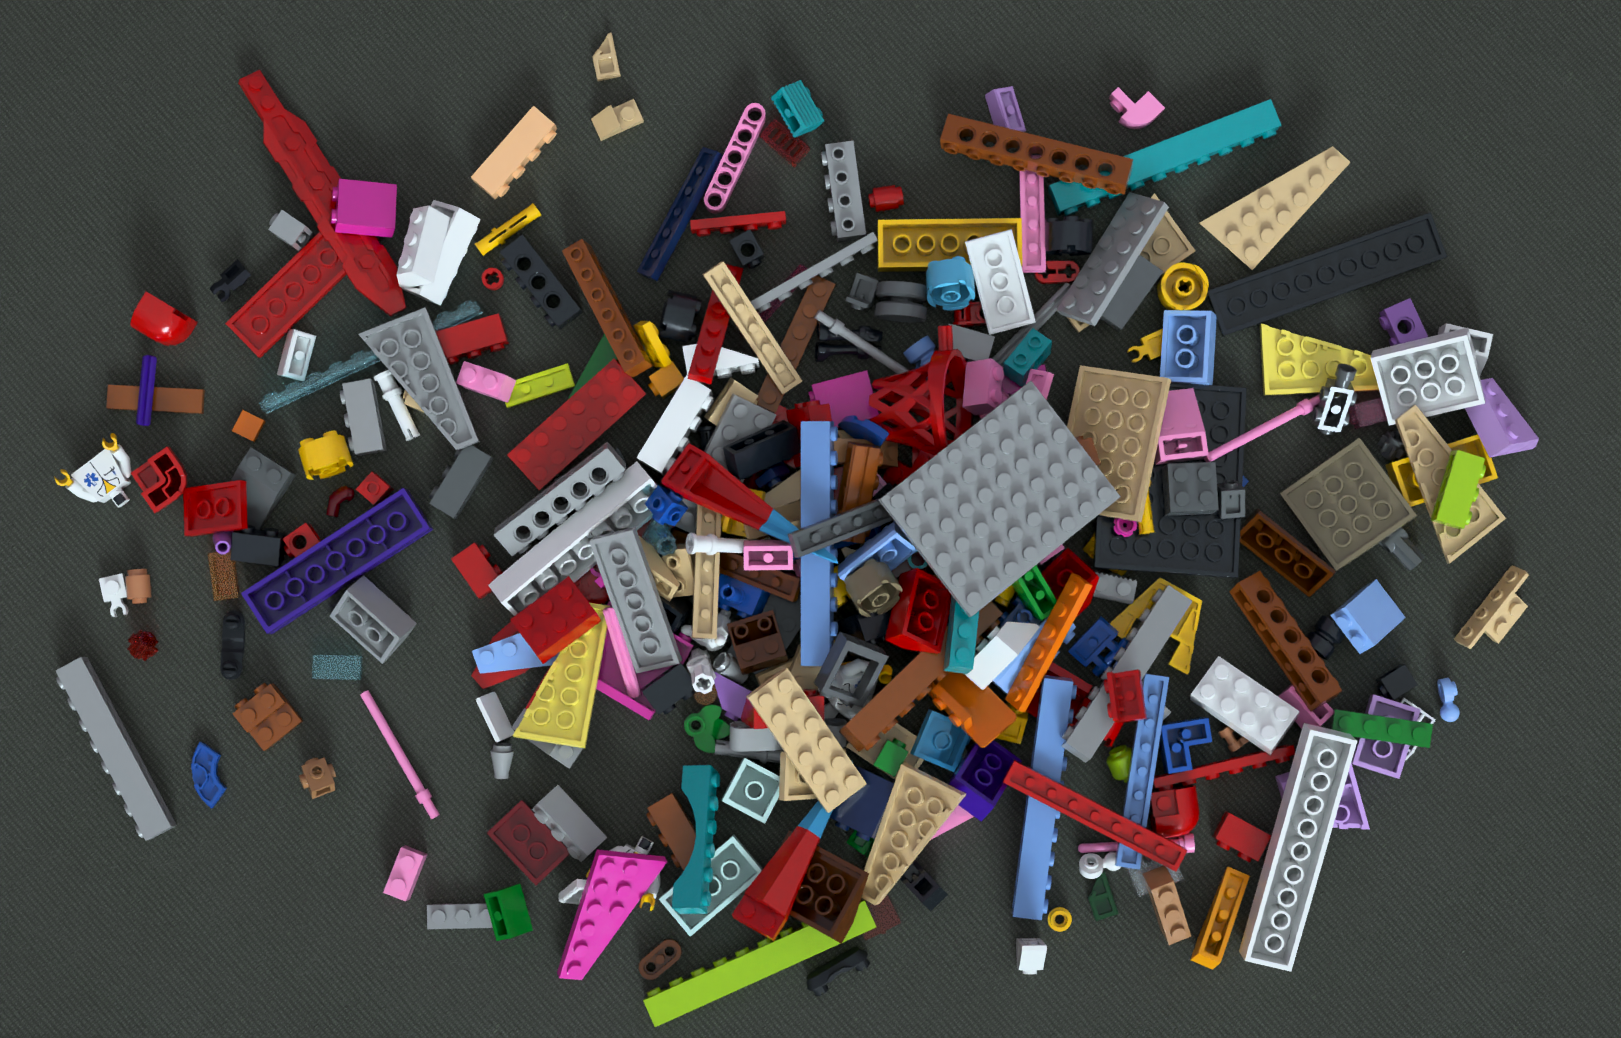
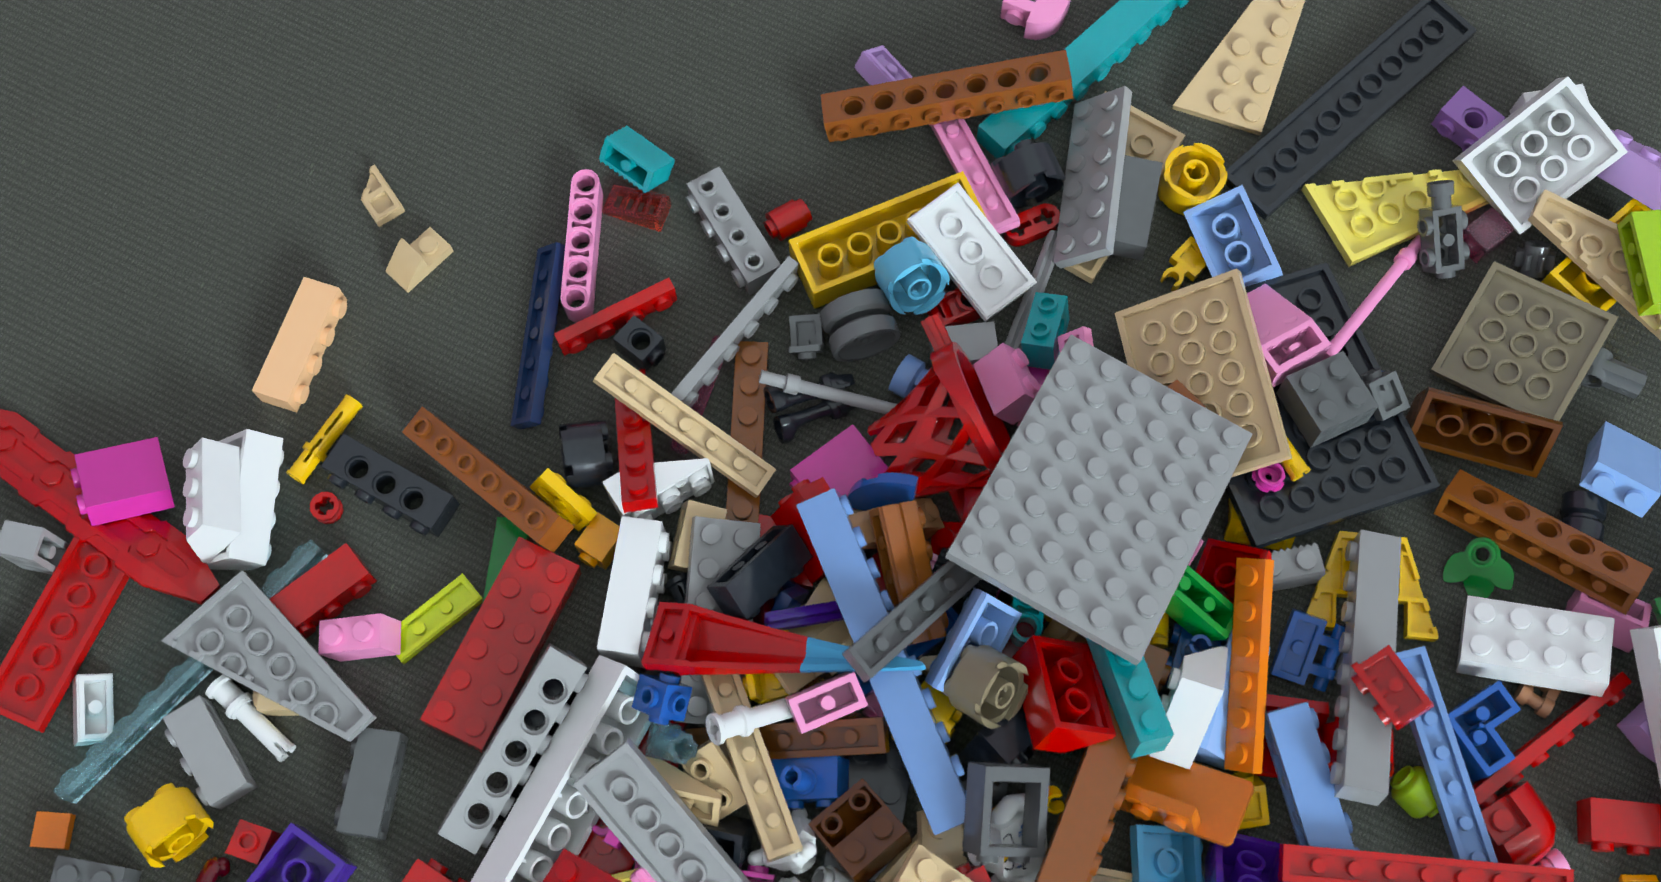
camera: 20 degrees left, 15 degrees down
(776, 489) = (803, 616): none -> dark purple axle
(1237, 643) = (1479, 575): none -> green plate

